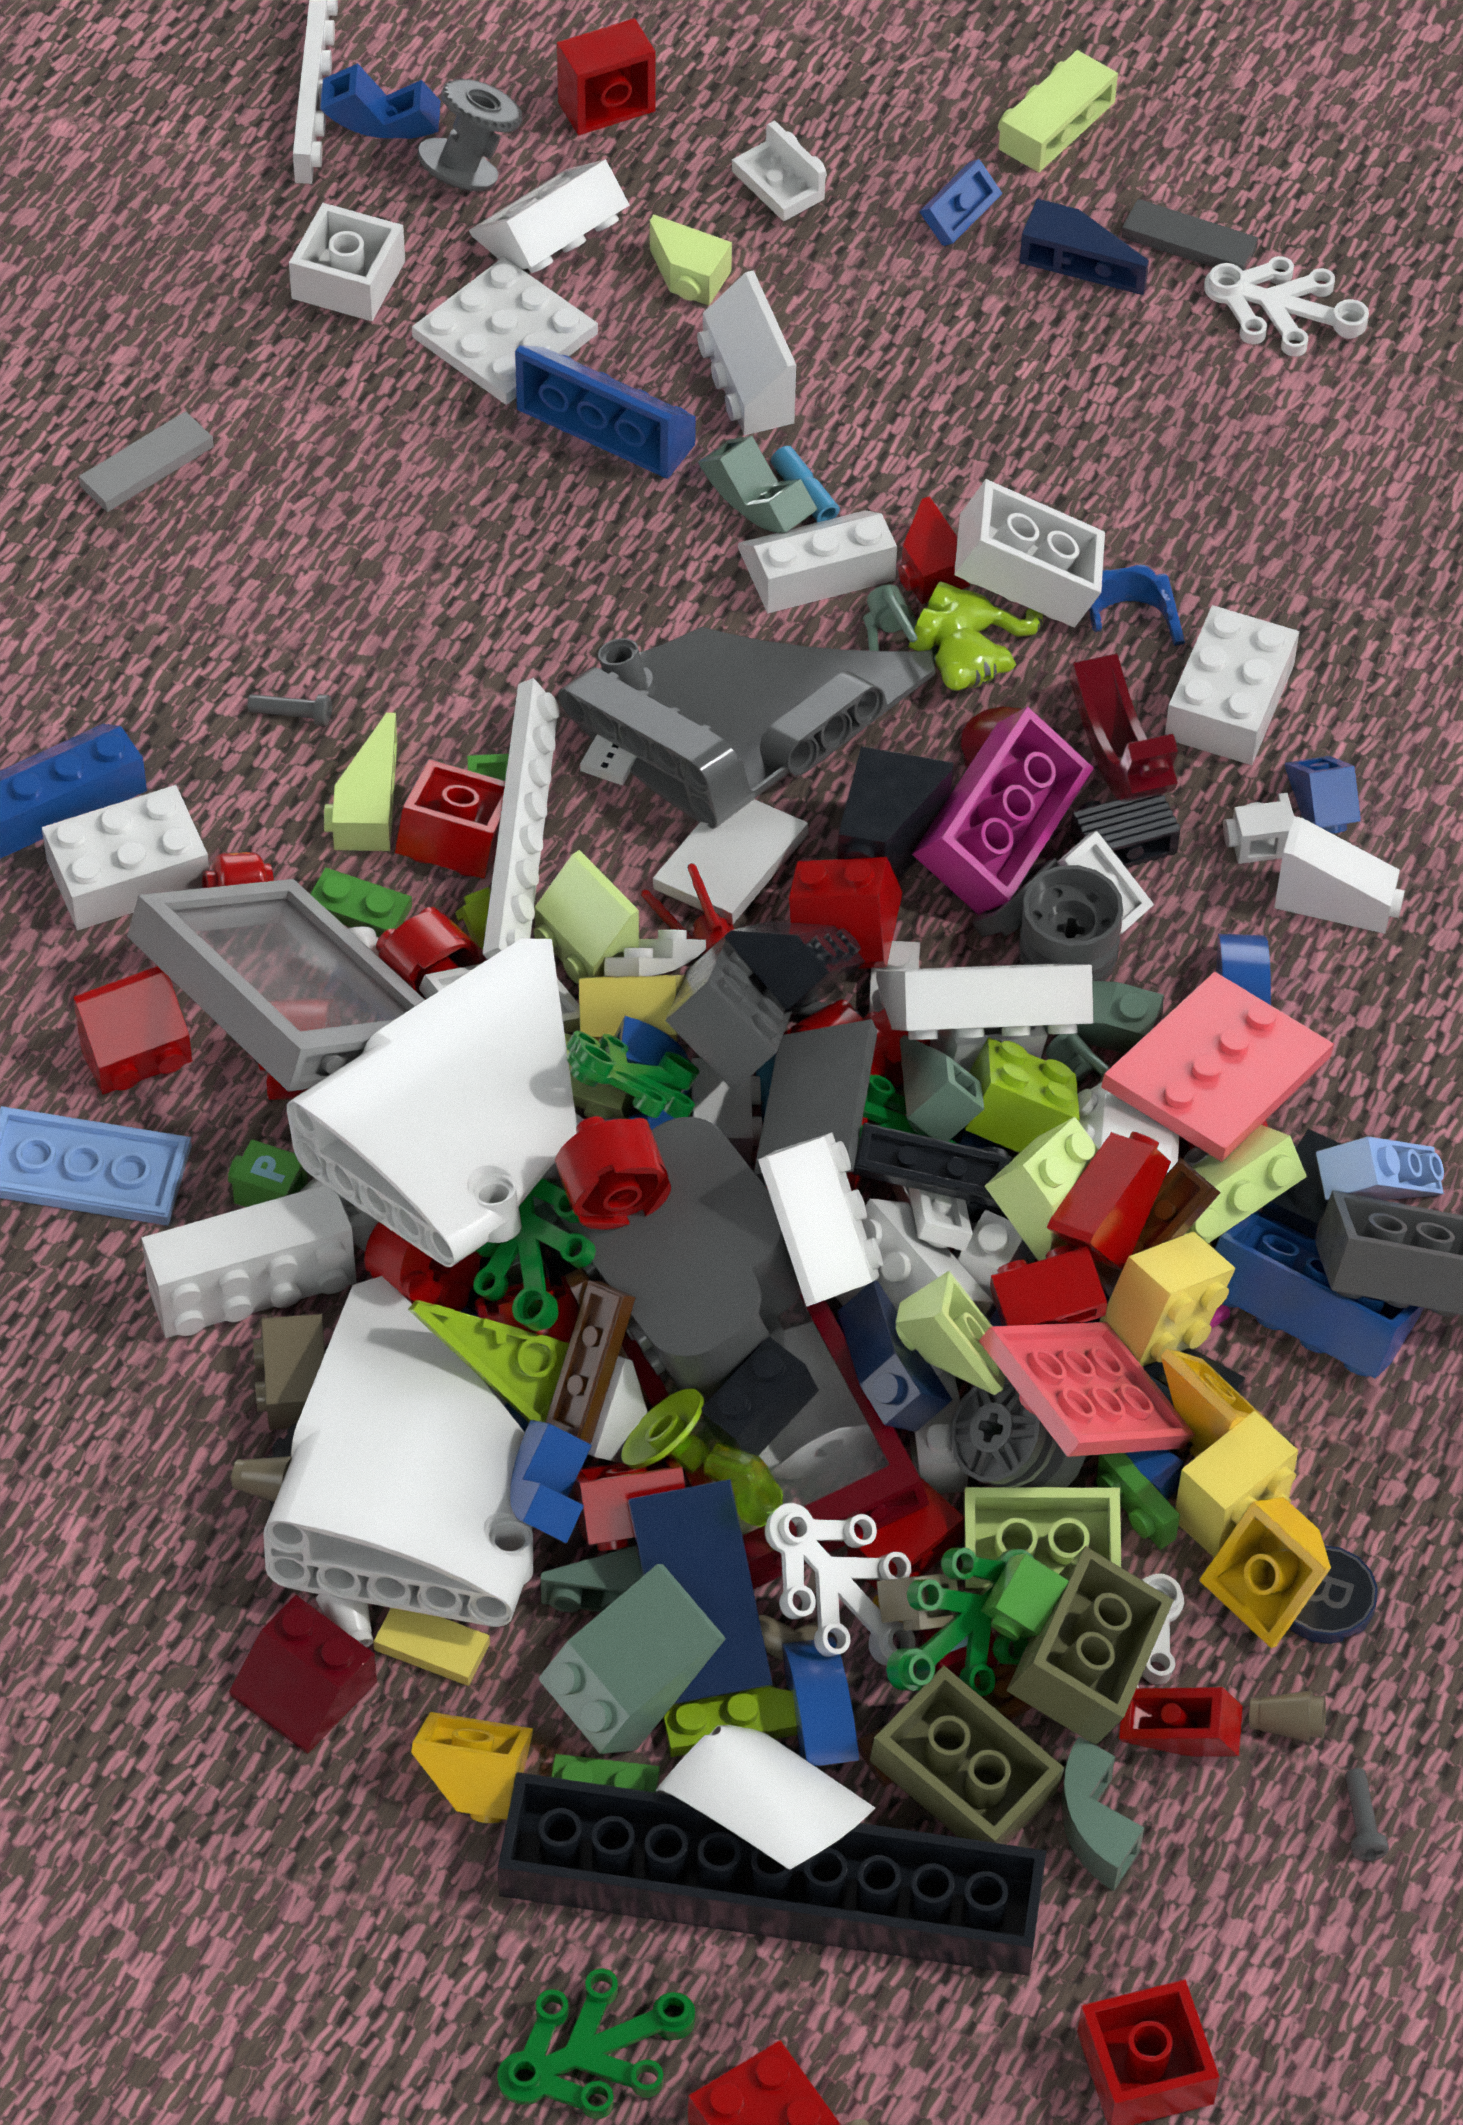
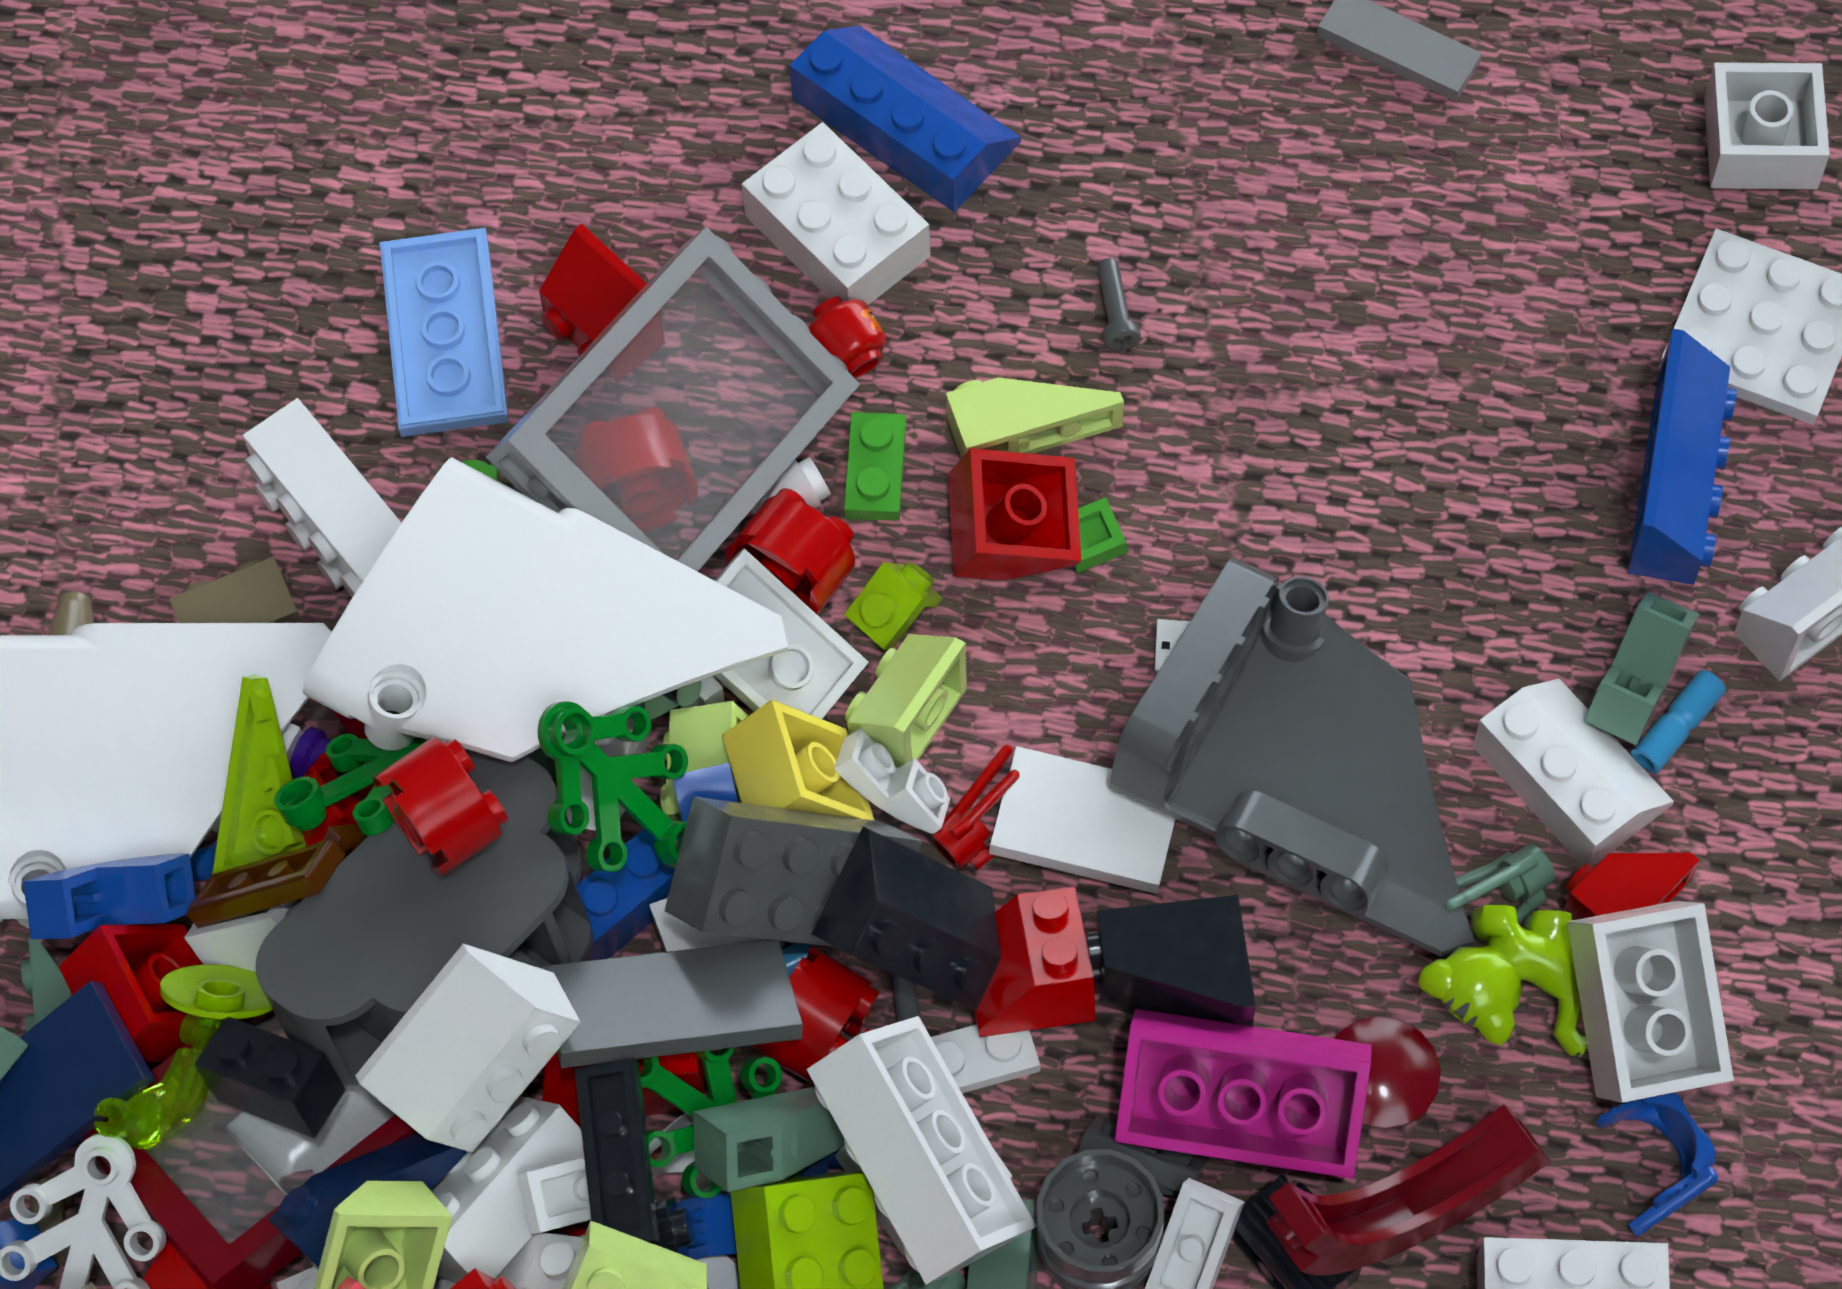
camera: 75 degrees right, 10 degrees up
(522, 818) = (1010, 583): white plate -> none

